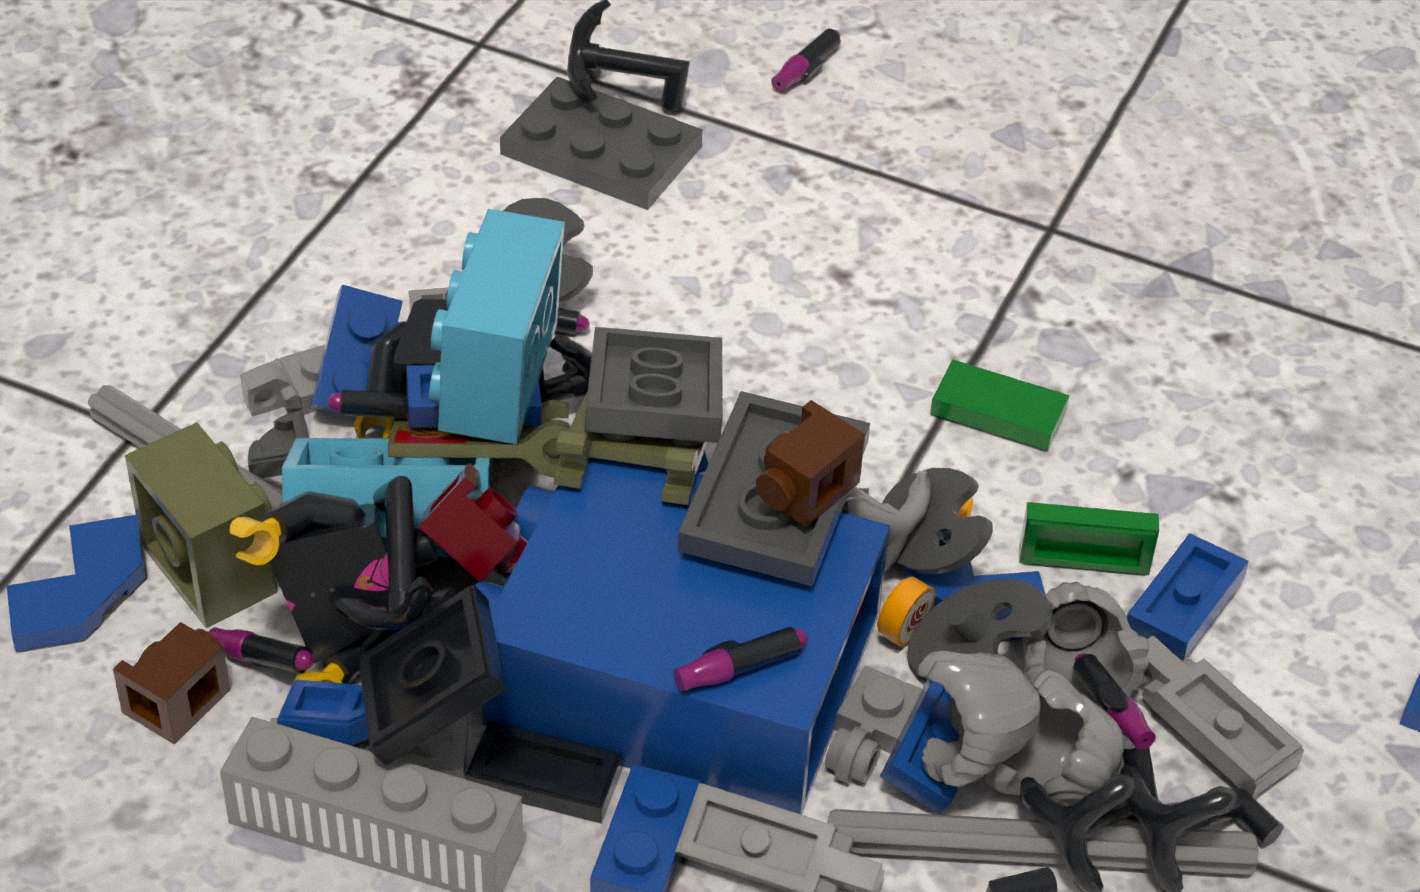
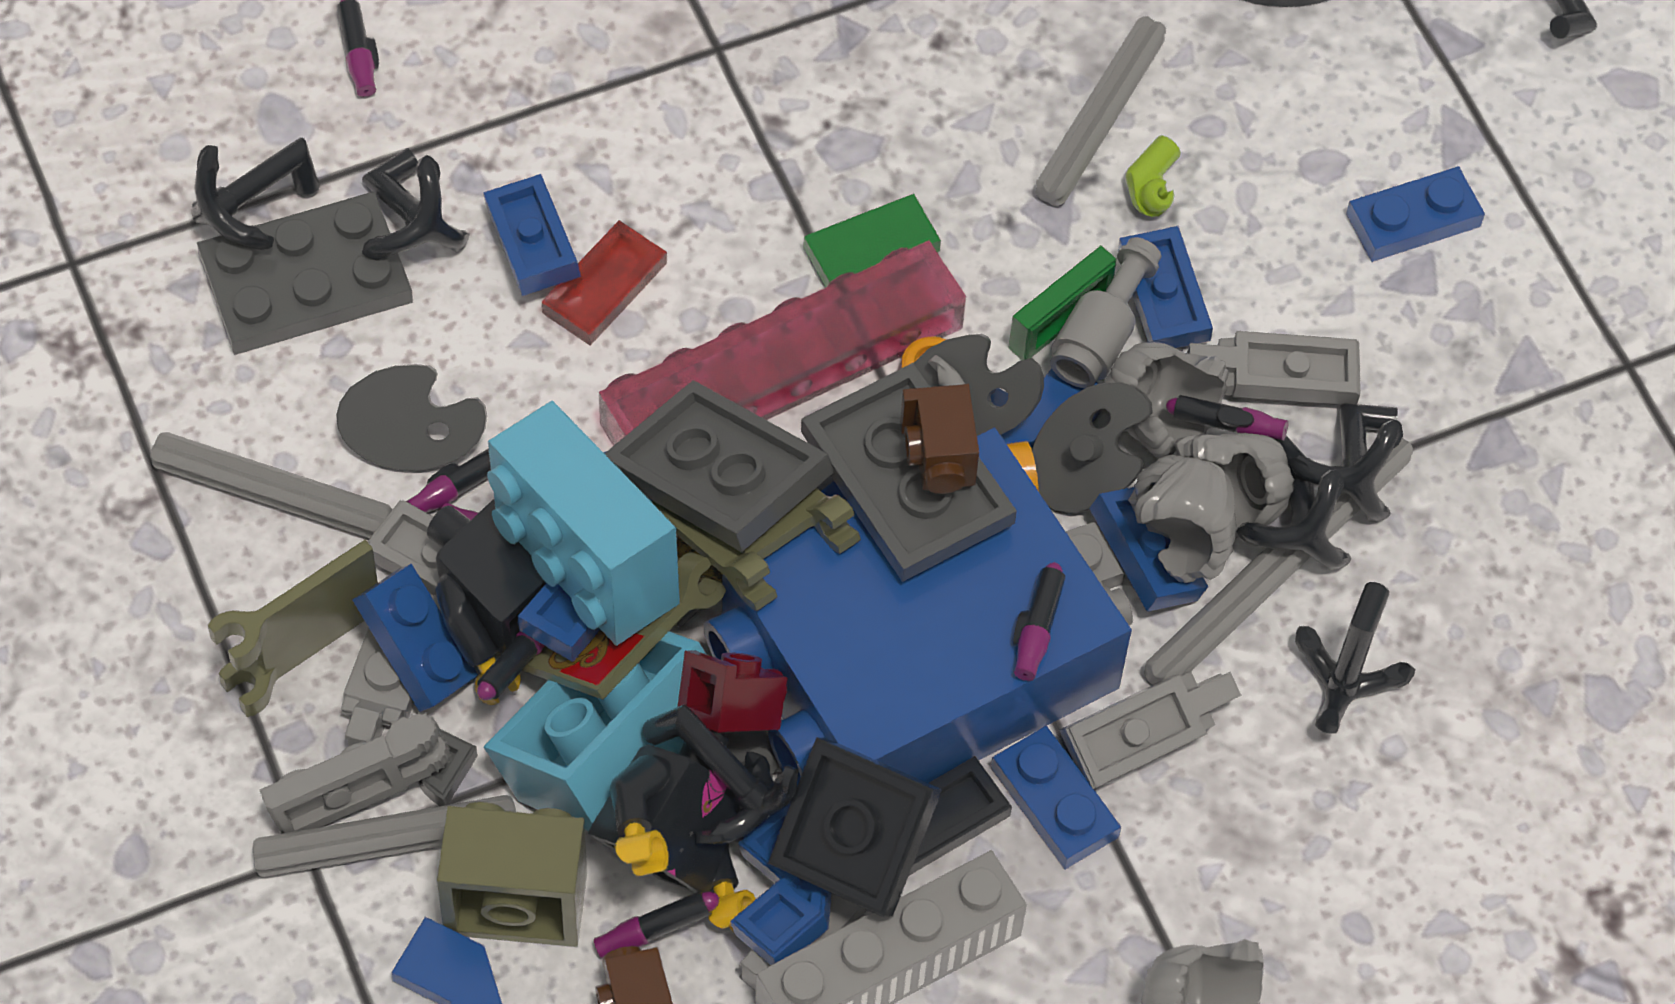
camera: 50 degrees left, 15 degrees up
(209, 395) = (357, 775): none -> light grey hinge
(290, 277) = (293, 625): none -> olive flag
(408, 218) = (268, 484): none -> light grey axle
(699, 151) = (421, 217): none -> black piece
(764, 220) = (531, 234): none -> blue plate
(782, 287) = (609, 281): none -> clear red tile
(909, 422) = (803, 342): none -> clear pink brick
(1099, 560) = (1103, 319): none -> light grey piece
(1271, 522) = (1145, 177): none -> lime arm
(1289, 458) = (1100, 111): none -> light grey axle

